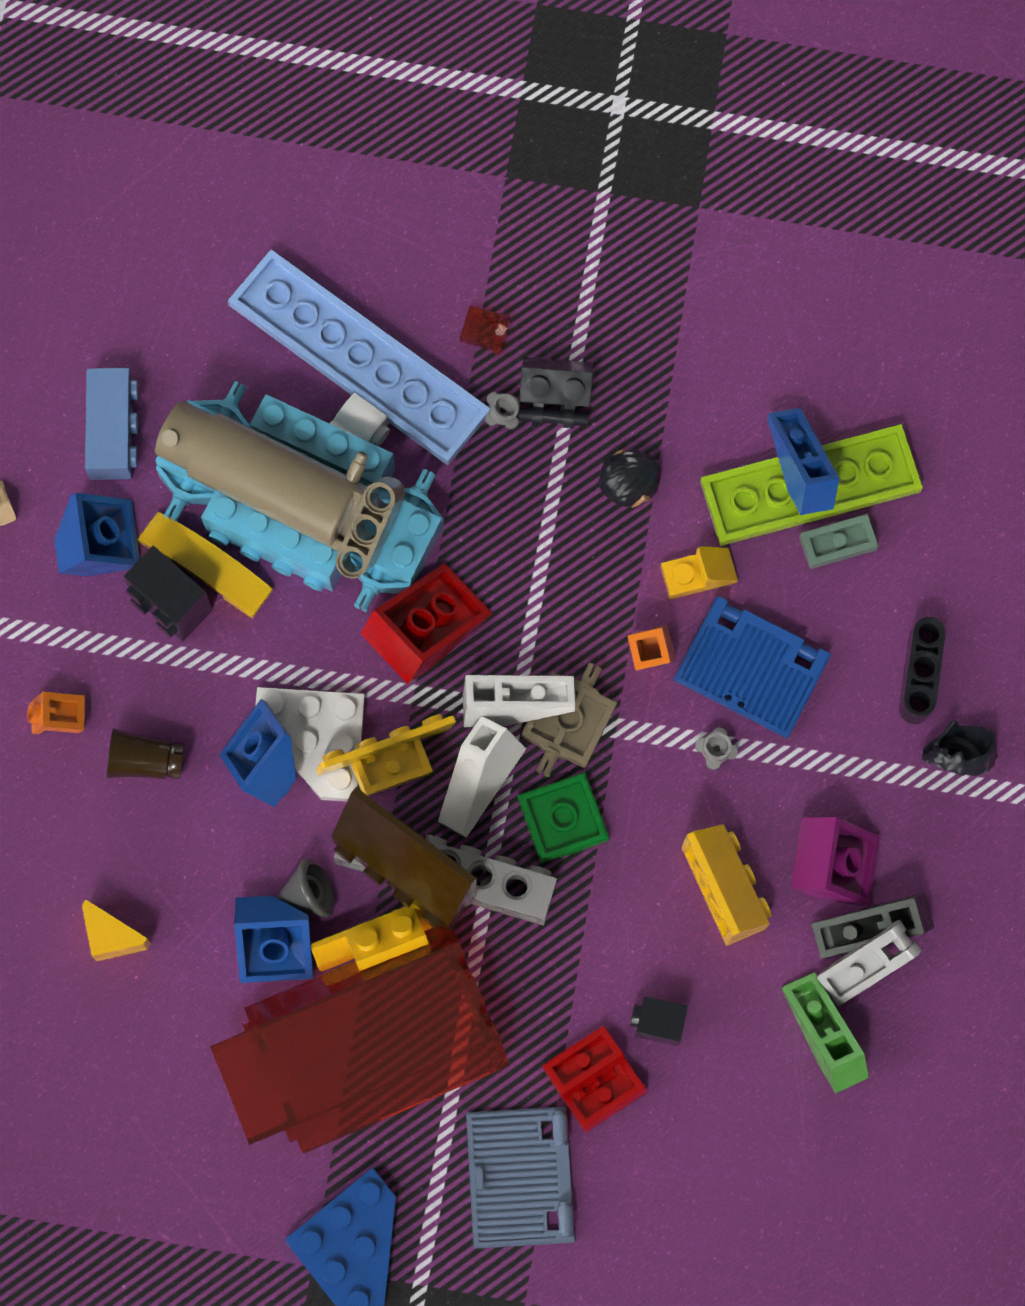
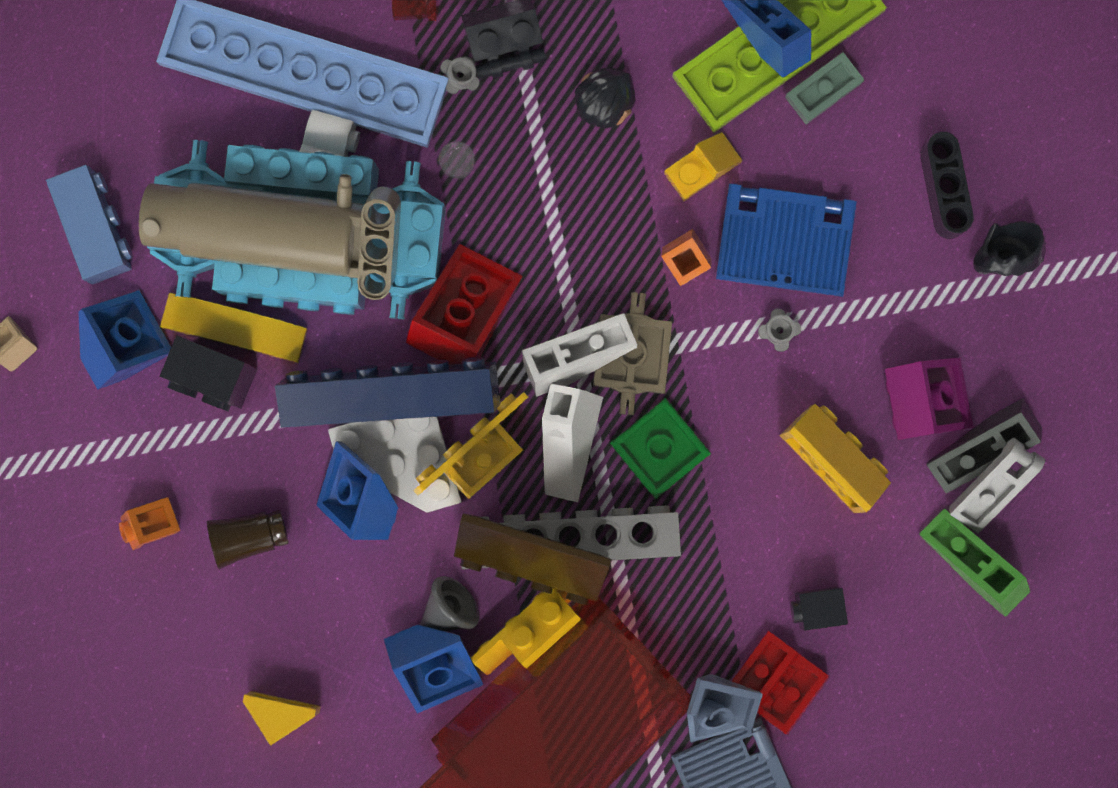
camera: 15 degrees left, 10 degrees up
(326, 671) = (389, 393): none -> dark blue brick
(470, 486) = (457, 160): none -> clear tile
(528, 1079) = (720, 707): none -> sand blue slope

